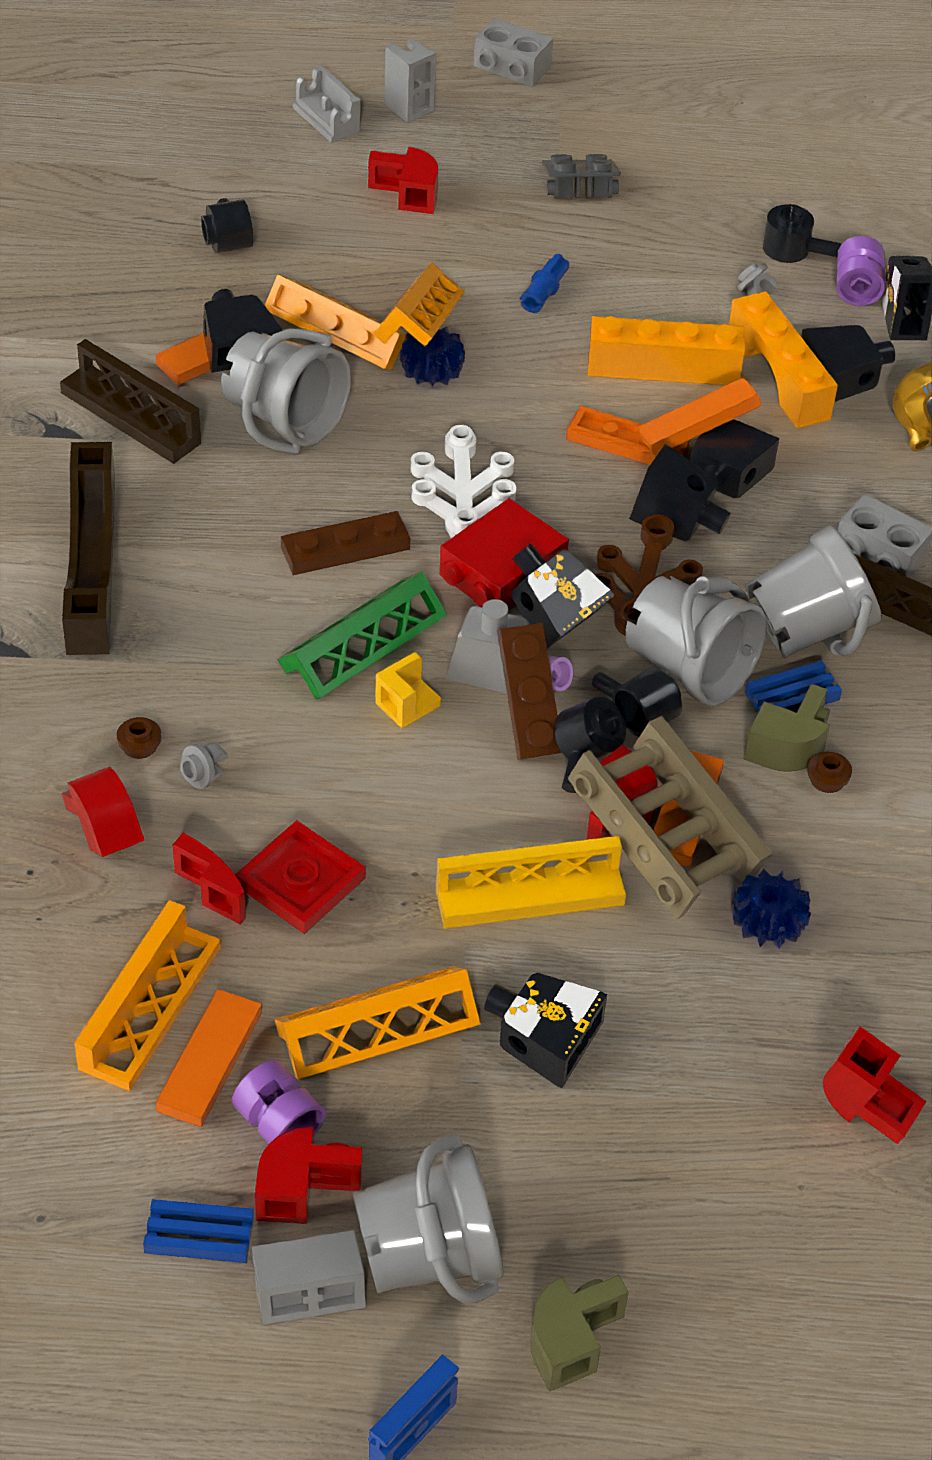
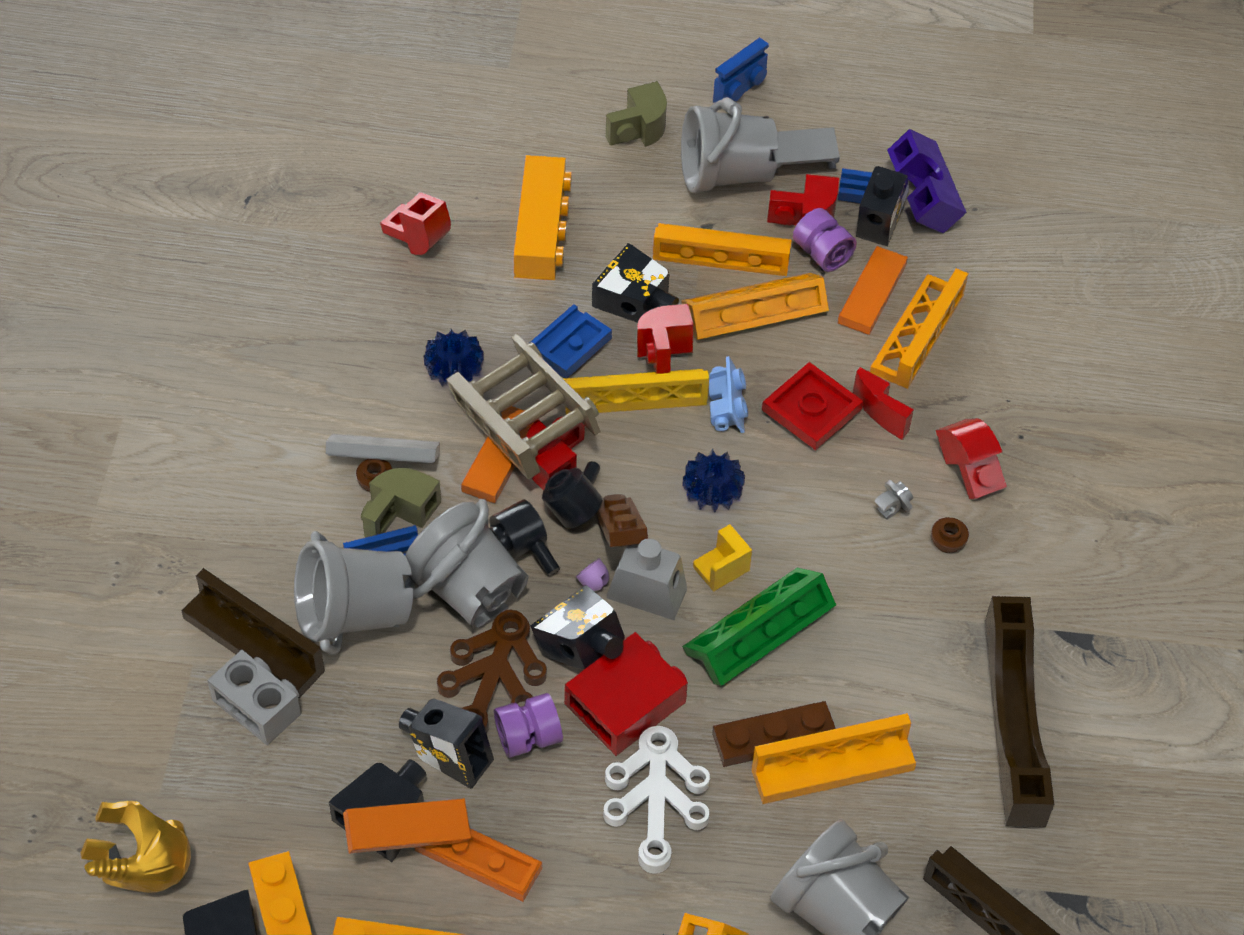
camera: 175 degrees left, 5 degrees up
(120, 1249) = (935, 198): none -> dark purple arch
(192, 1130) = (885, 198): none -> black torso
(282, 515) = (832, 760): none -> light orange fence
(406, 868) = (728, 385): none -> light blue hinge
(422, 1089) = (721, 249): none -> light orange fence
(423, 773) = (713, 480): none -> clear blue gear
(503, 950) = (663, 333): none -> red brick
(595, 522) = (528, 725): none -> medium lavender wheel
(624, 945) = (571, 340): none -> blue plate
(698, 1130) = (540, 217): none -> light orange brick
(828, 793) = (382, 448): none -> light grey tile

